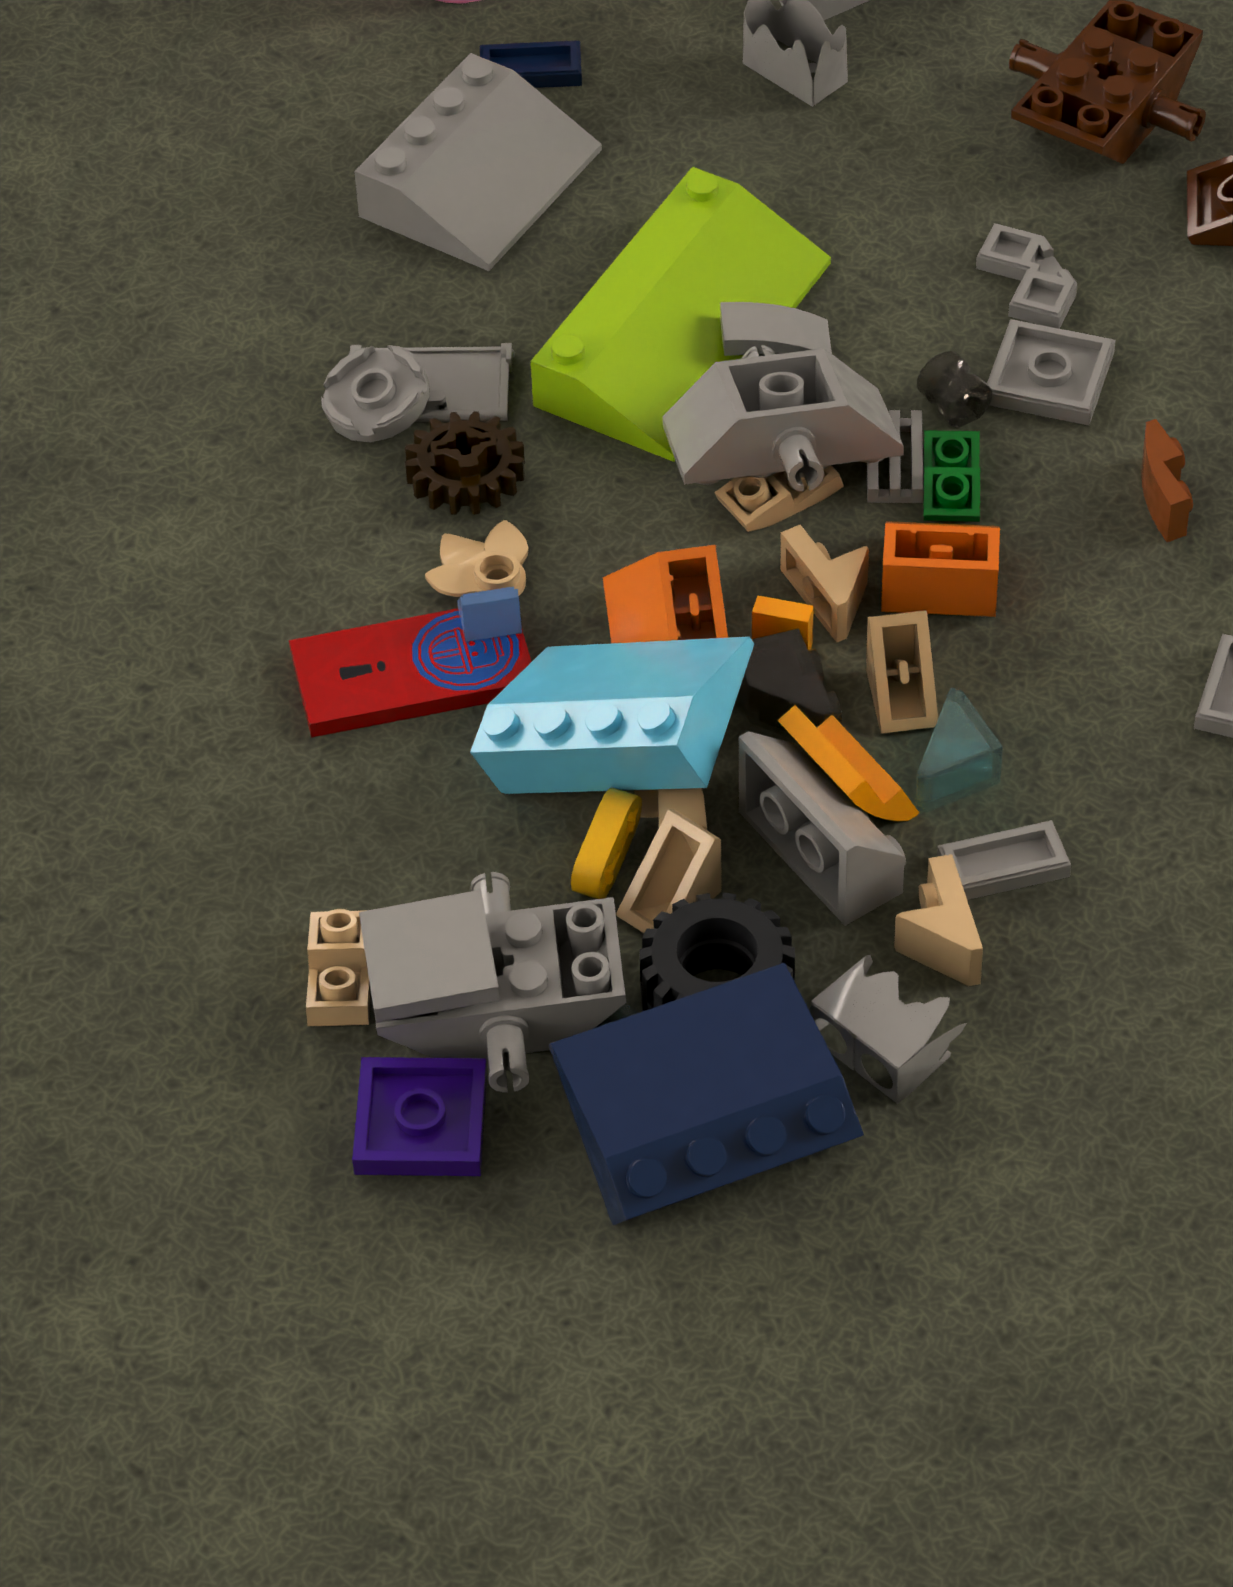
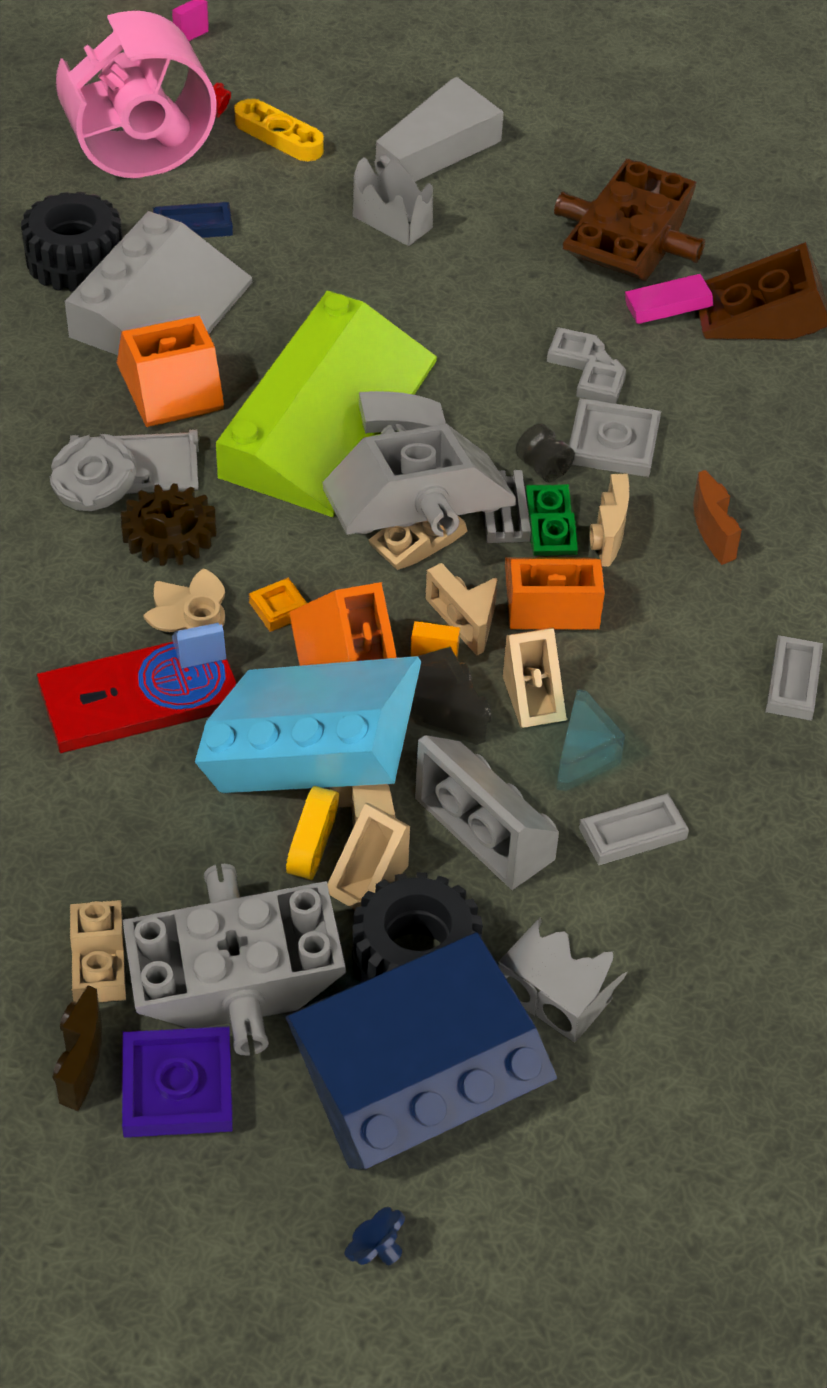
camera: 10 degrees left, 0 degrees up
(315, 1064) = (83, 1042): none -> dark brown slope
(366, 85) = (68, 237): none -> black tyre
(429, 956) = (177, 943): light grey tile -> none
(483, 266) = (171, 370): none -> orange slope
(588, 564) = (275, 603): none -> light orange tile
(636, 1300) = (377, 1238): none -> dark blue plant
(850, 766) = (504, 757): light orange slope -> none
(943, 929) = (596, 889): tan slope -> none
(1029, 479) = (609, 531): none -> tan slope
(1148, 189) = (669, 298): none -> dark pink tile

